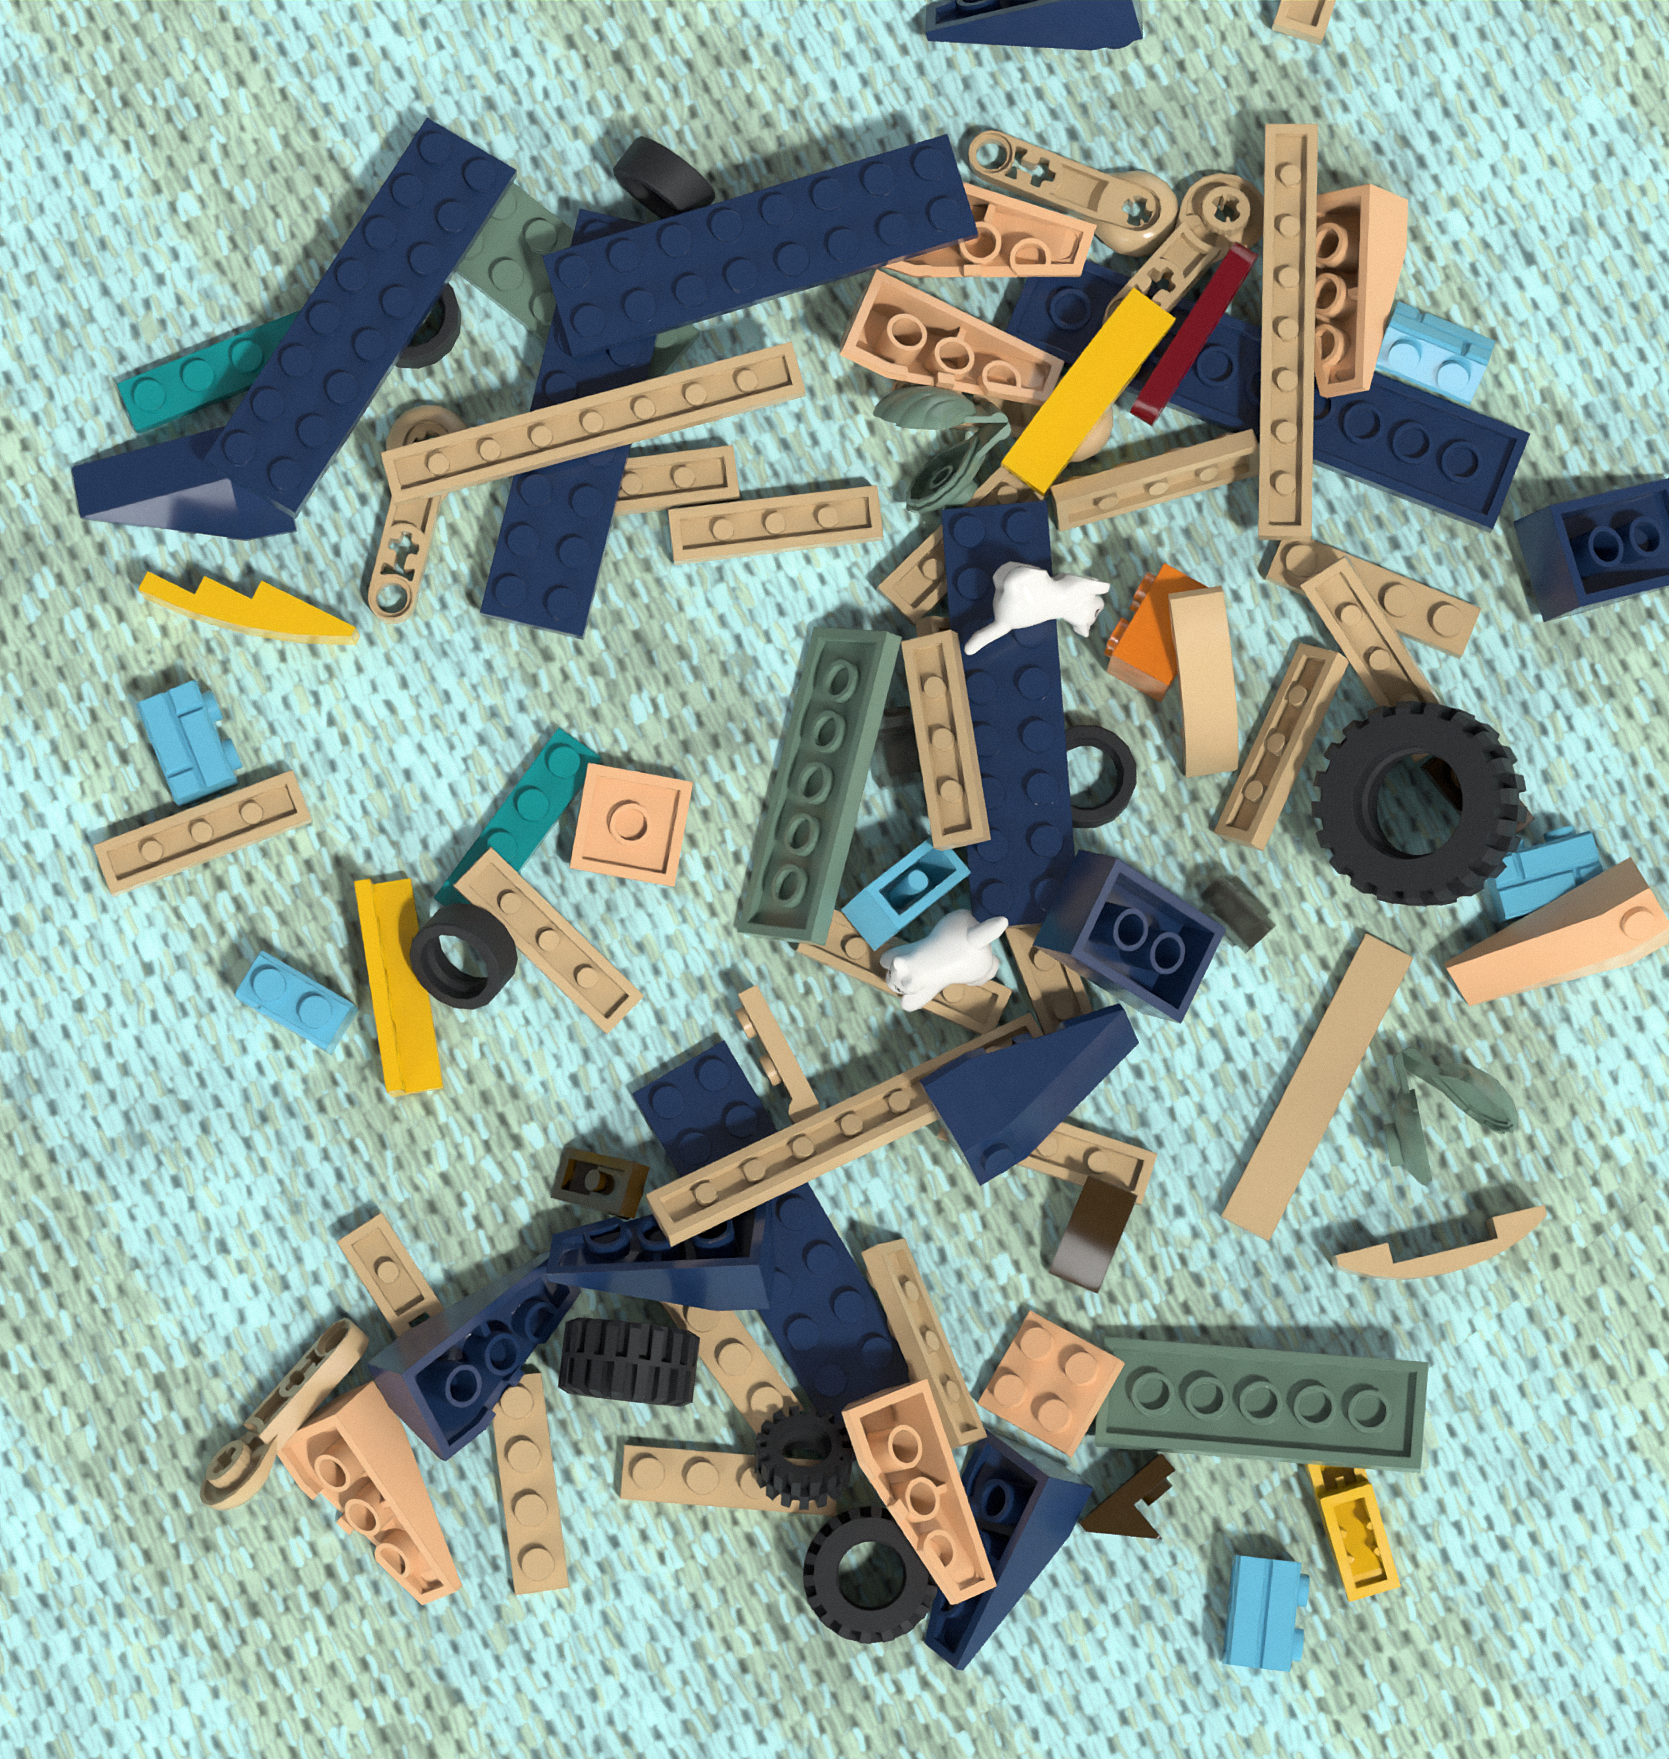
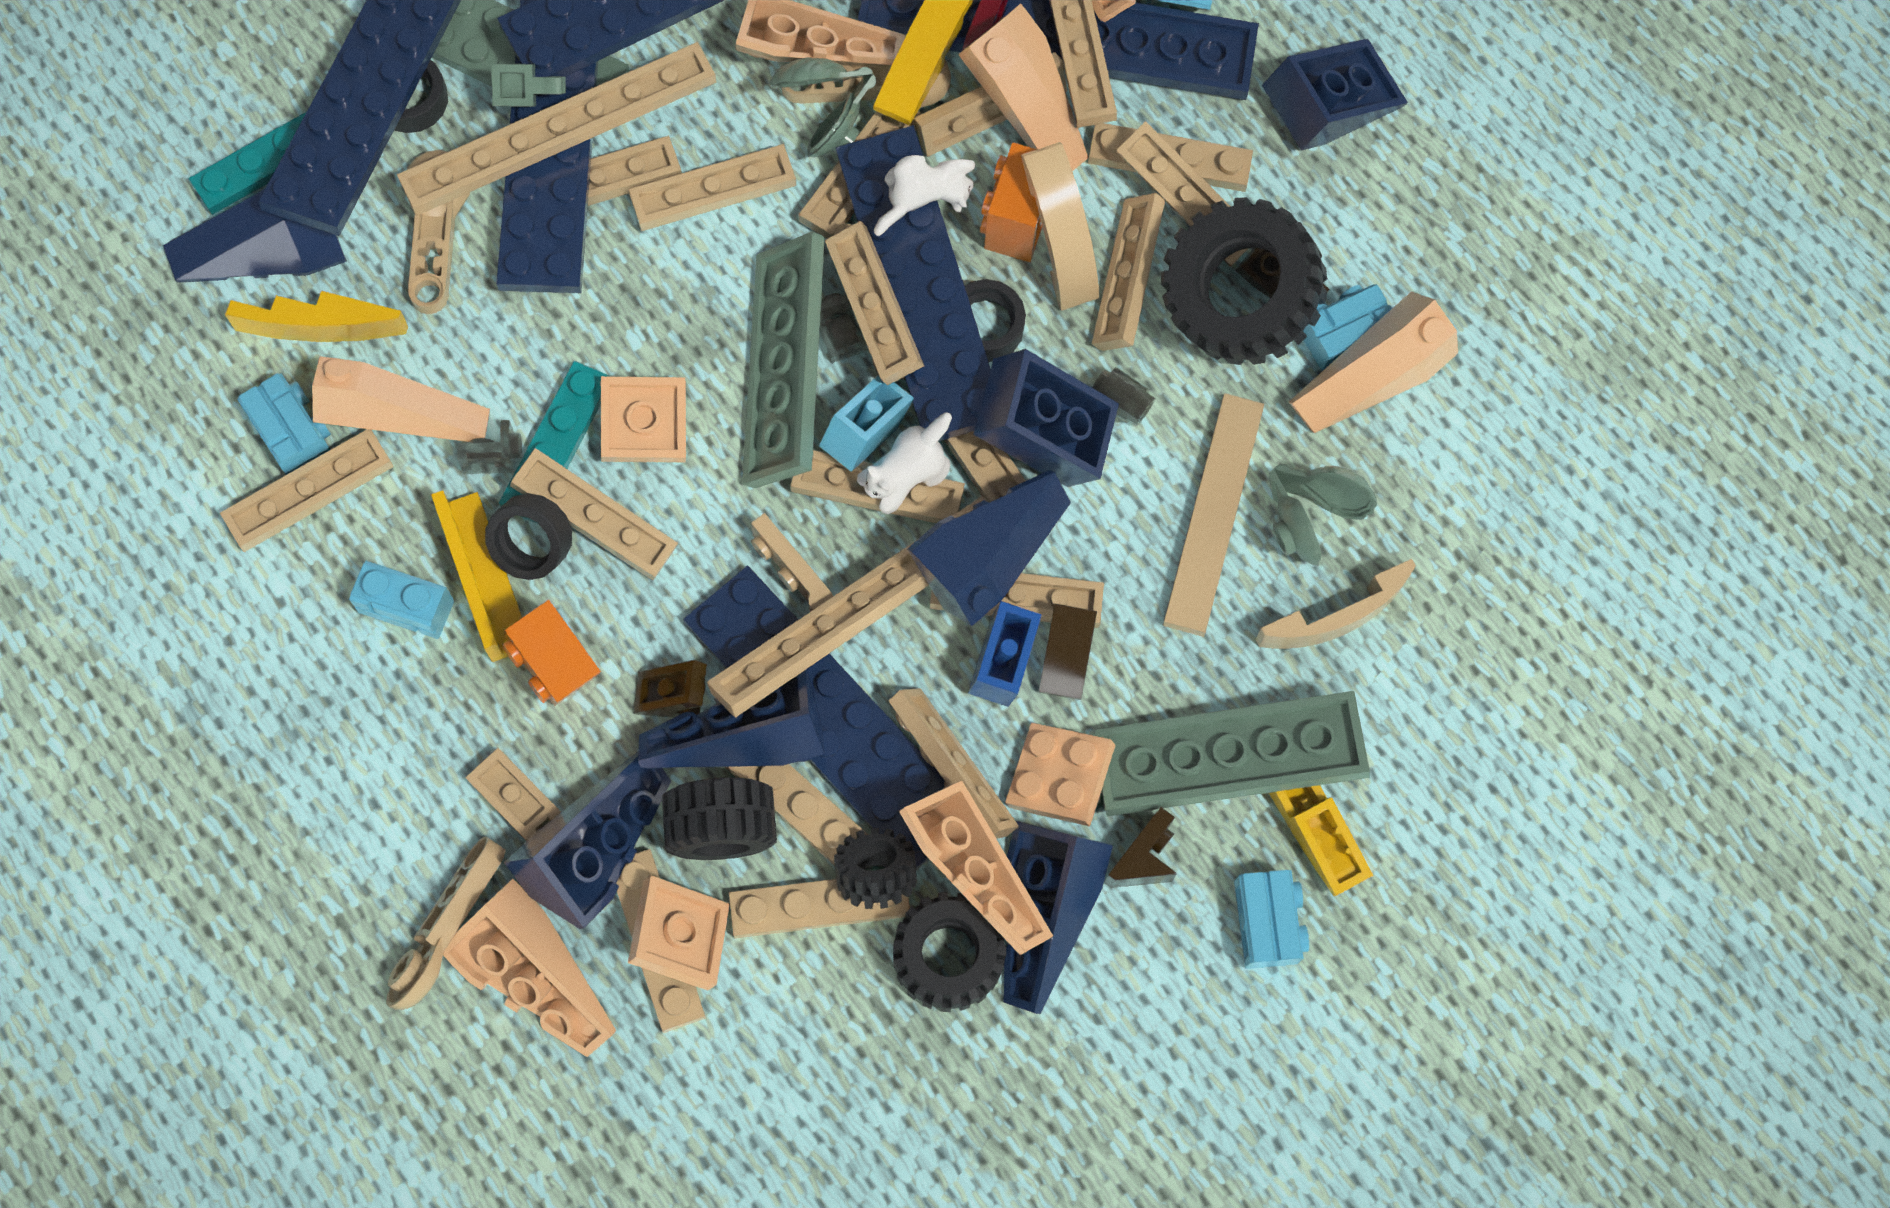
camera: 15 degrees left, 10 degrees down
(313, 736) = (379, 400): none -> light nougat wedge
(428, 834) = (489, 457): none -> clear smoke bracket
(465, 1116) = (549, 653): none -> orange brick
(552, 356) = (518, 85): none -> sand green plate
(556, 1486) = (679, 933): none -> light nougat plate
(1014, 1222) = (1004, 654): none -> blue brick
(1203, 470) = (1024, 83): none -> light nougat wedge

